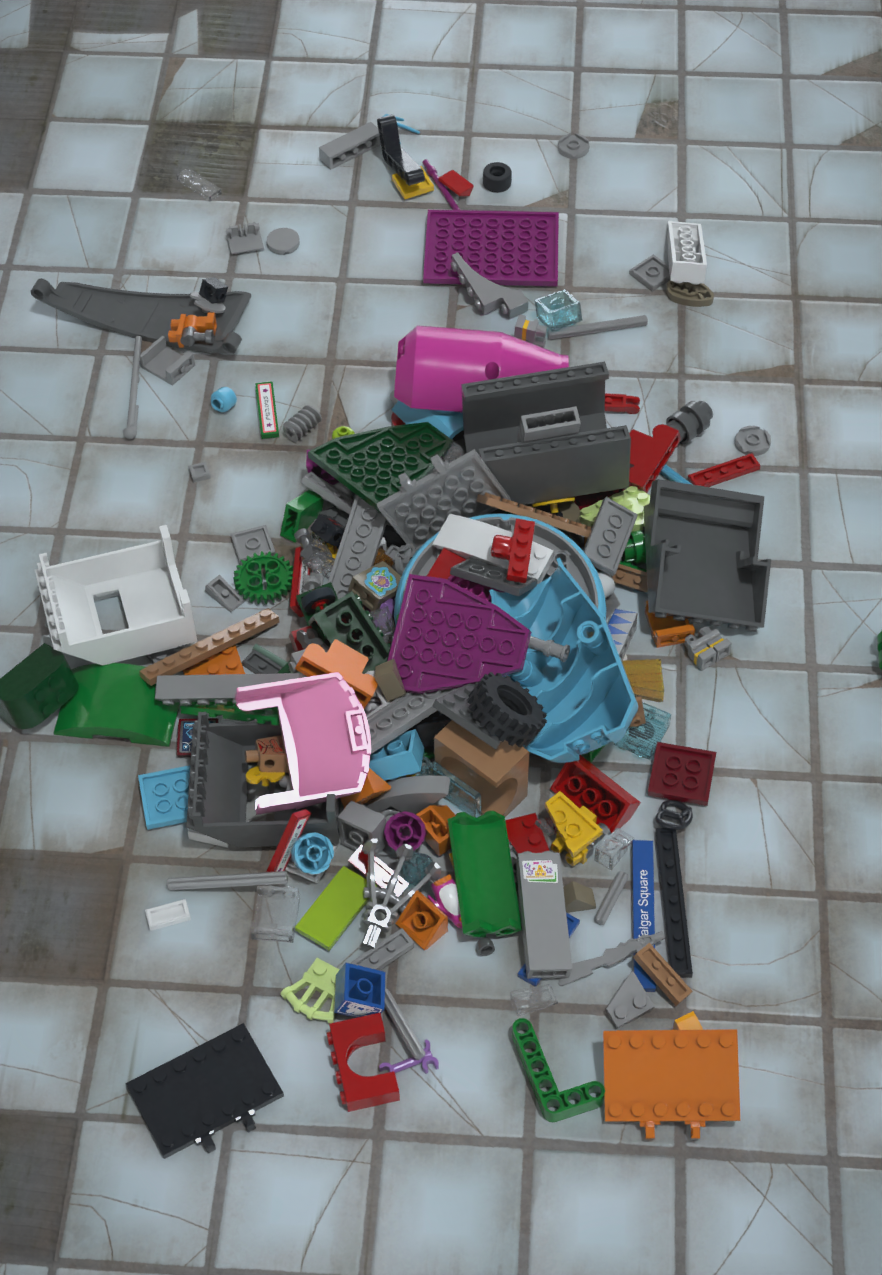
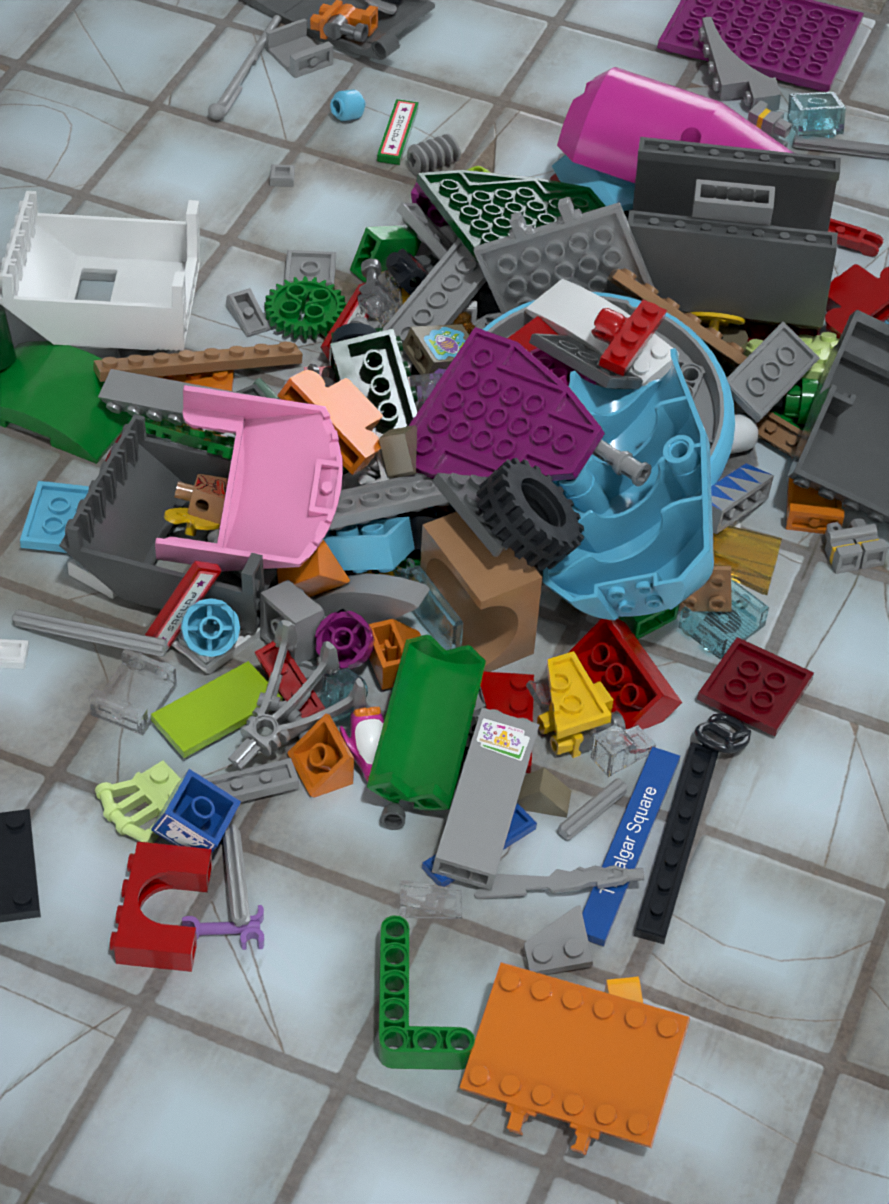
camera: 15 degrees right, 5 degrees down
(662, 974) = (621, 924): medium nougat plate -> none

